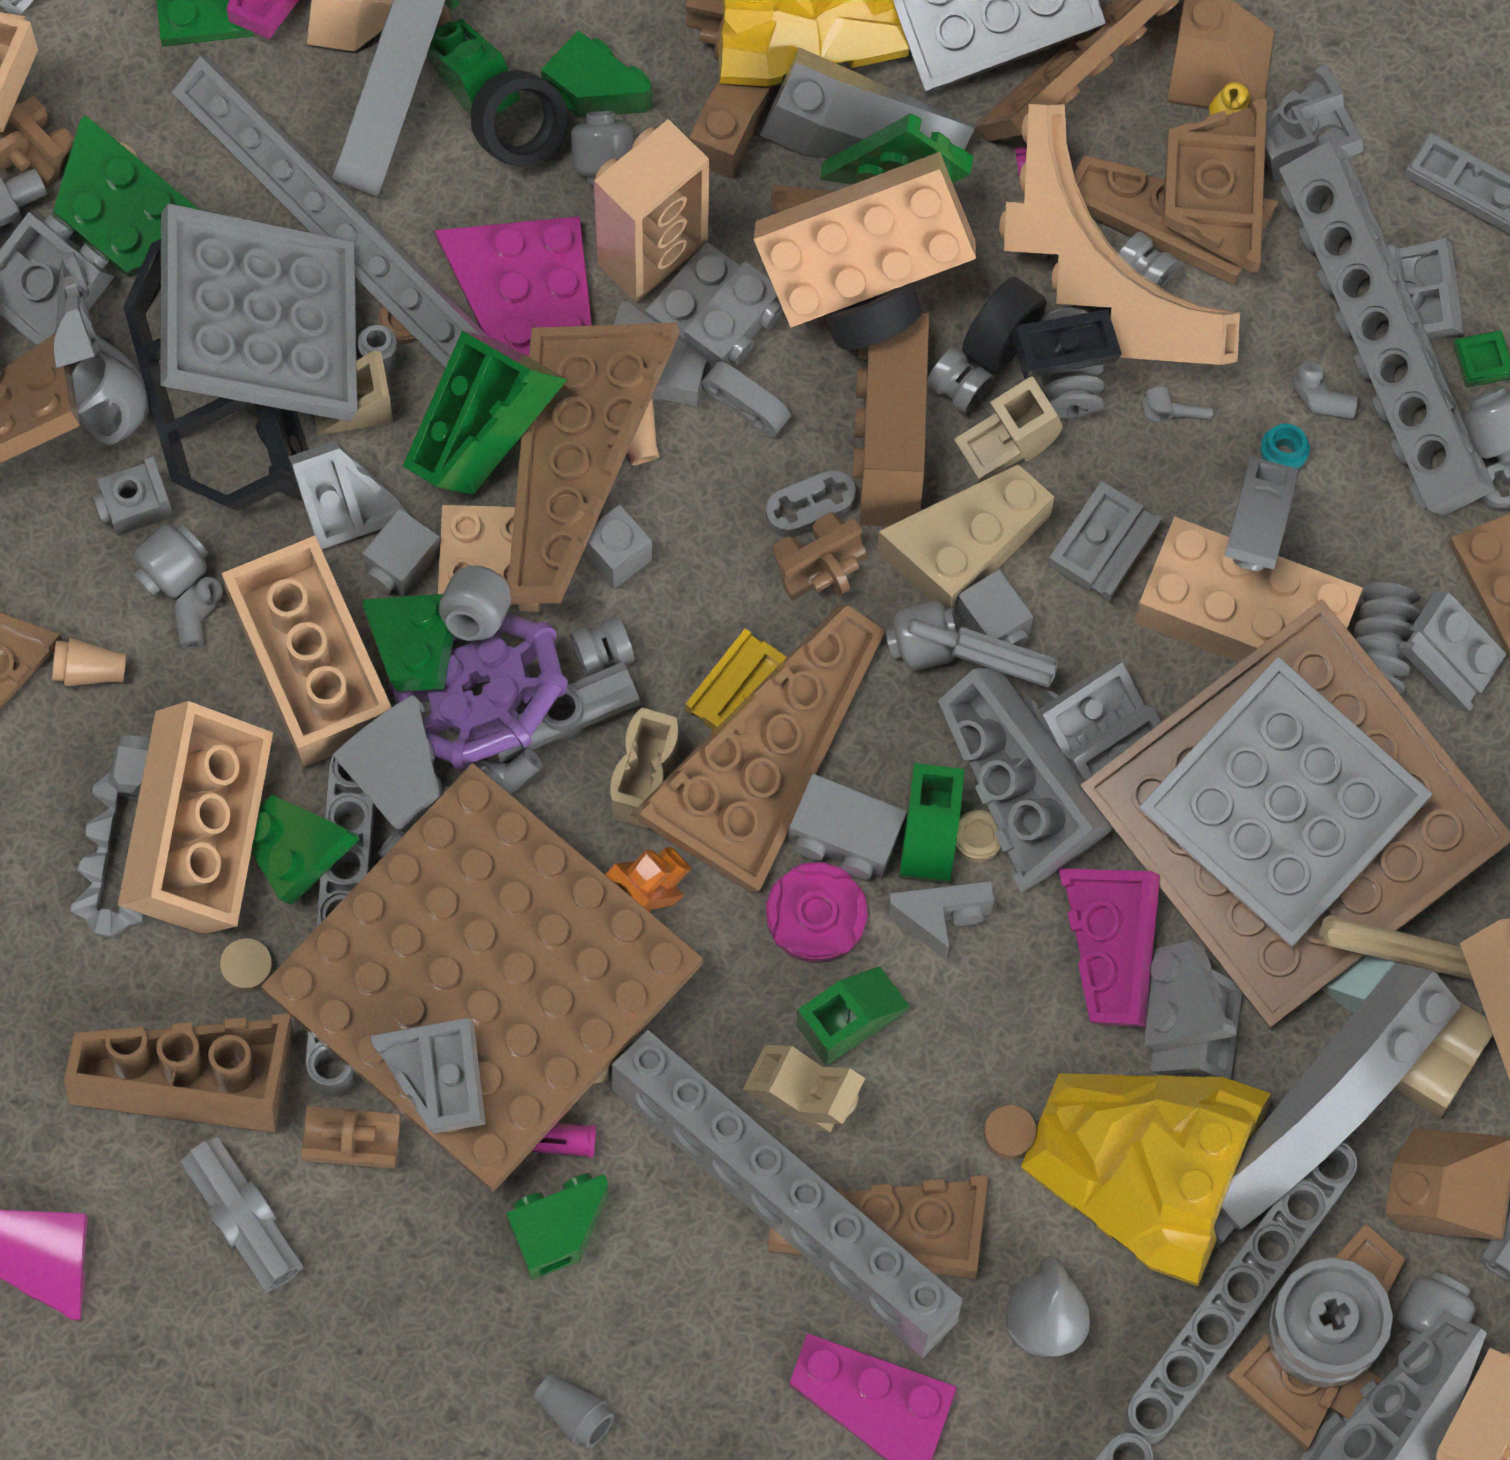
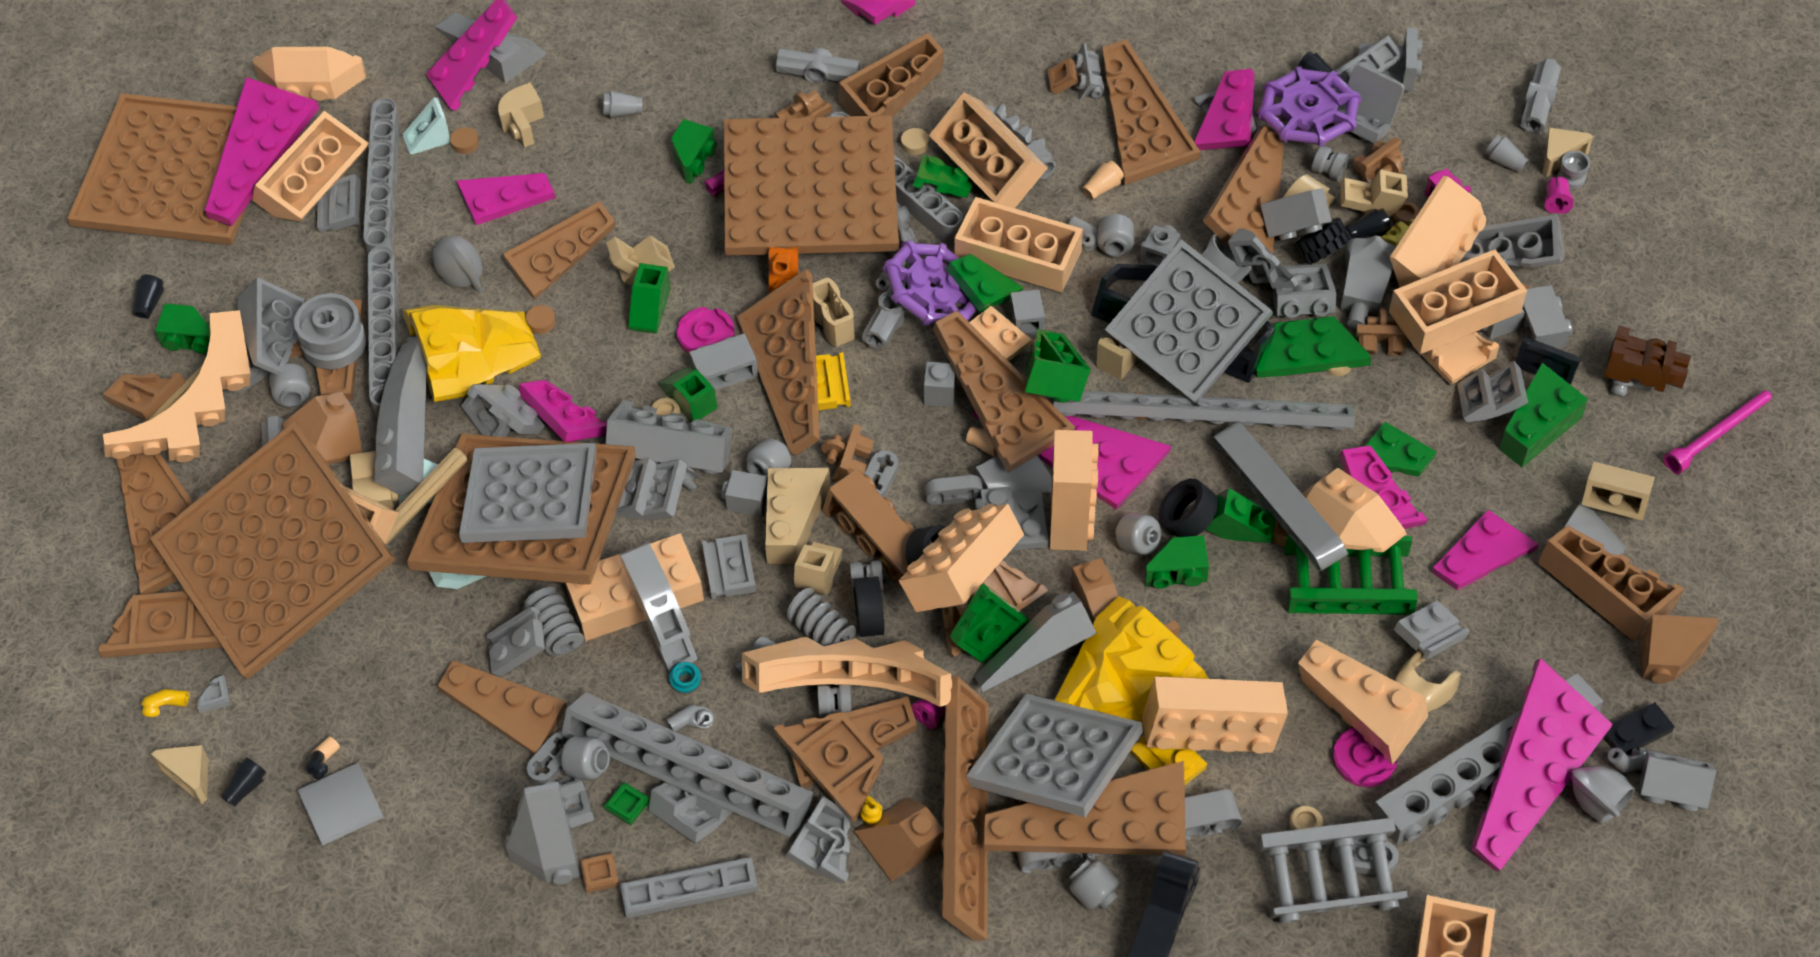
camera: 140 degrees right, 15 degrees down
(341, 495) = (1077, 305): light grey wing -> none
(382, 336) = (1132, 371): light grey pin -> none
(394, 764) = (929, 221): light grey slope -> none
(438, 1072) = (783, 125): light grey wing -> none
(475, 603) = (967, 298): light grey head -> none
(591, 650) = (904, 344): light grey wheel -> none
(786, 1194) = (606, 210): light grey brick -> none
(926, 910) = (652, 363): light grey slope -> none
(991, 652) = (727, 462): light grey axle -> none
(1066, 343) = (824, 600): black plate -> none

